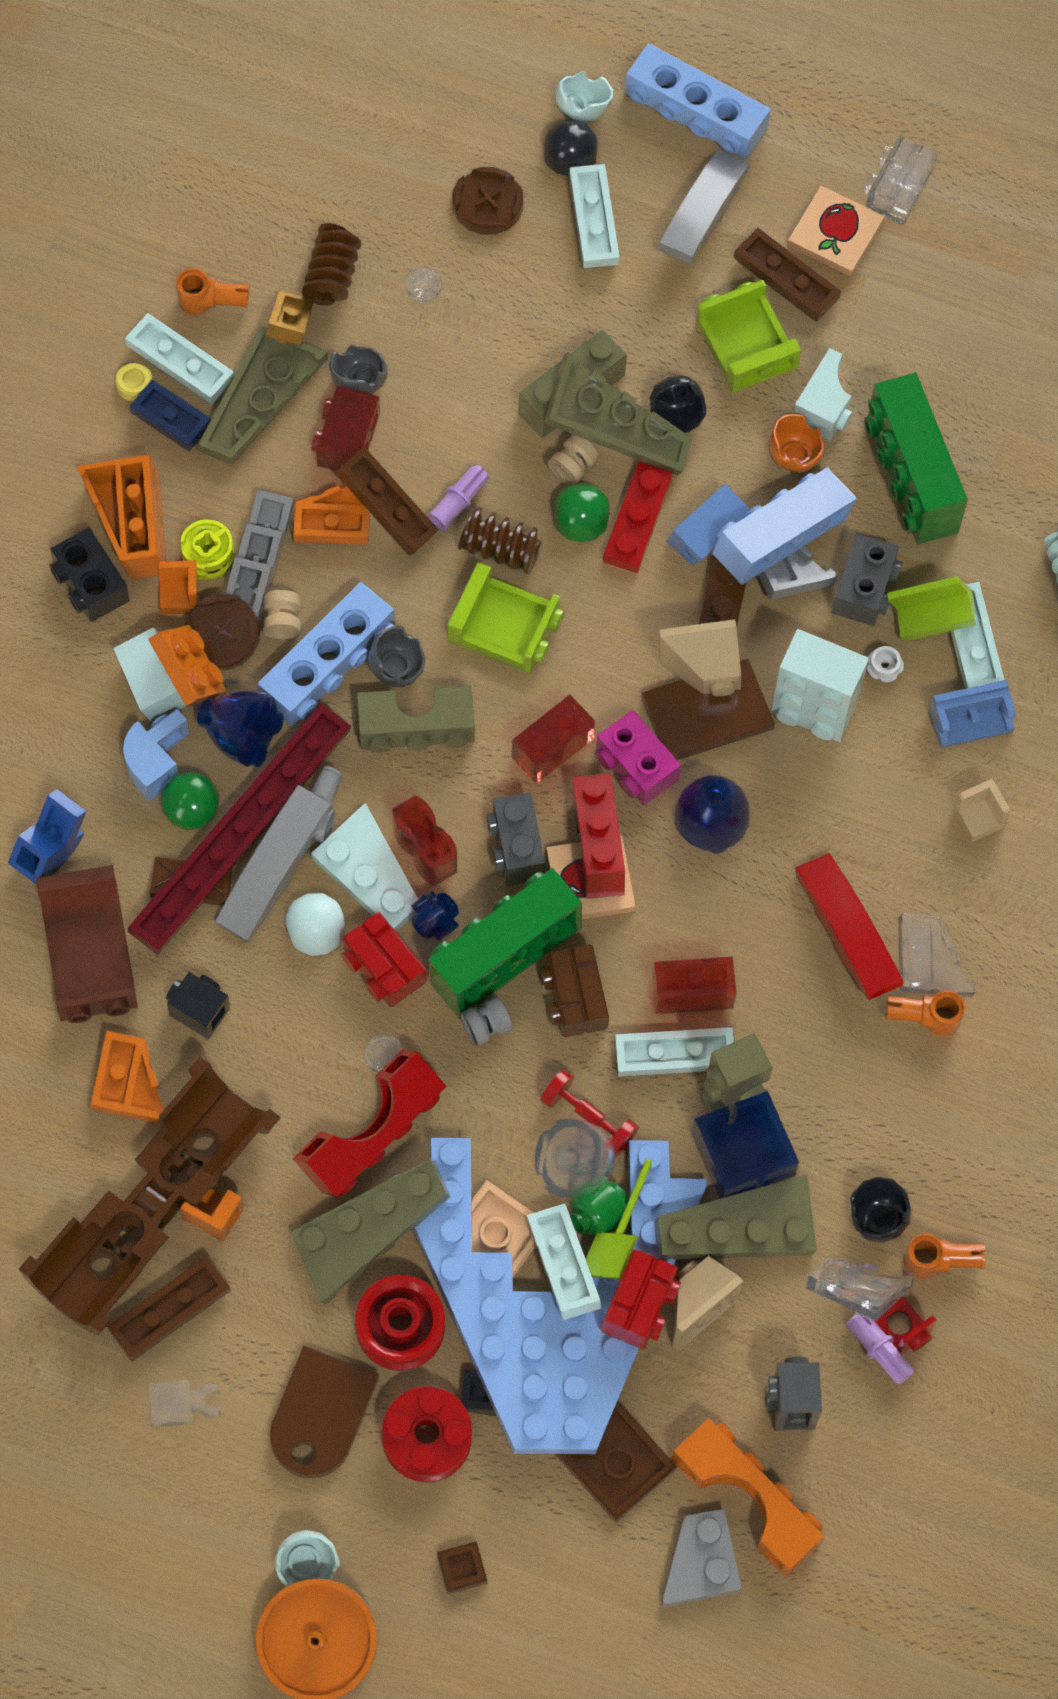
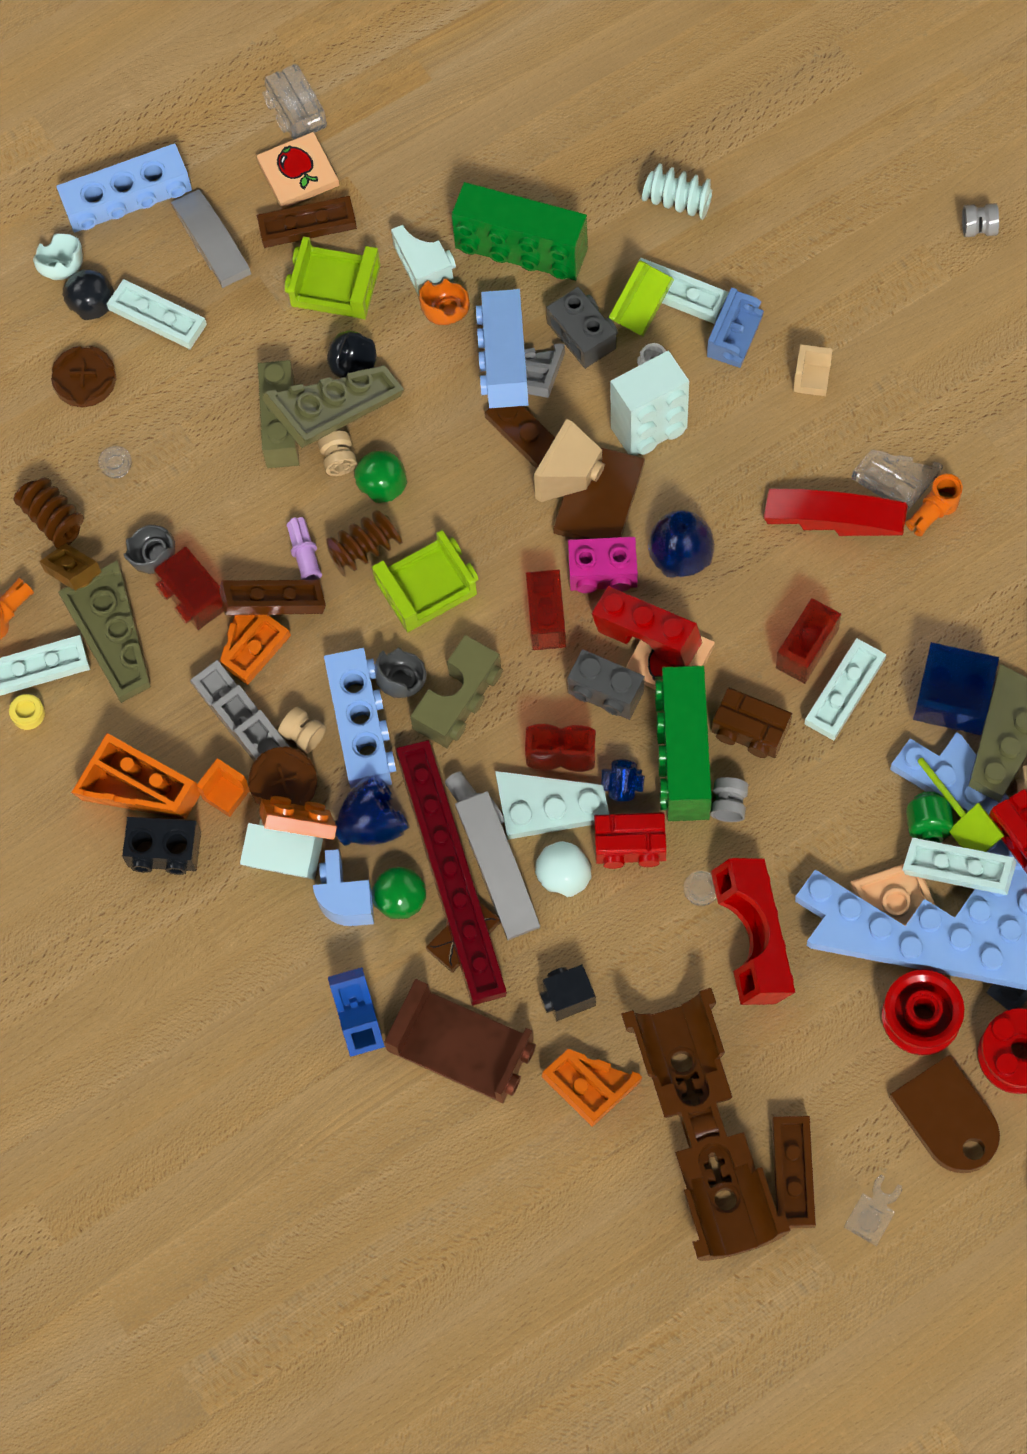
camera: 45 degrees left, 0 degrees up
(170, 415) = (77, 703): dark blue plate -> none
(210, 546) = (204, 744): neon yellow wheel -> none
(214, 1213) = (745, 1089): orange panel -> none
(360, 1230) = (832, 993): olive wing -> none
(558, 1089) = (885, 767): red wheel -> none
(574, 1158) = (881, 805): clear cylinder -> none
(637, 517) = (413, 442): red plate -> none
(699, 531) = (460, 399): medium blue hinge -> none
(736, 1074) = (908, 655): olive arch -> none

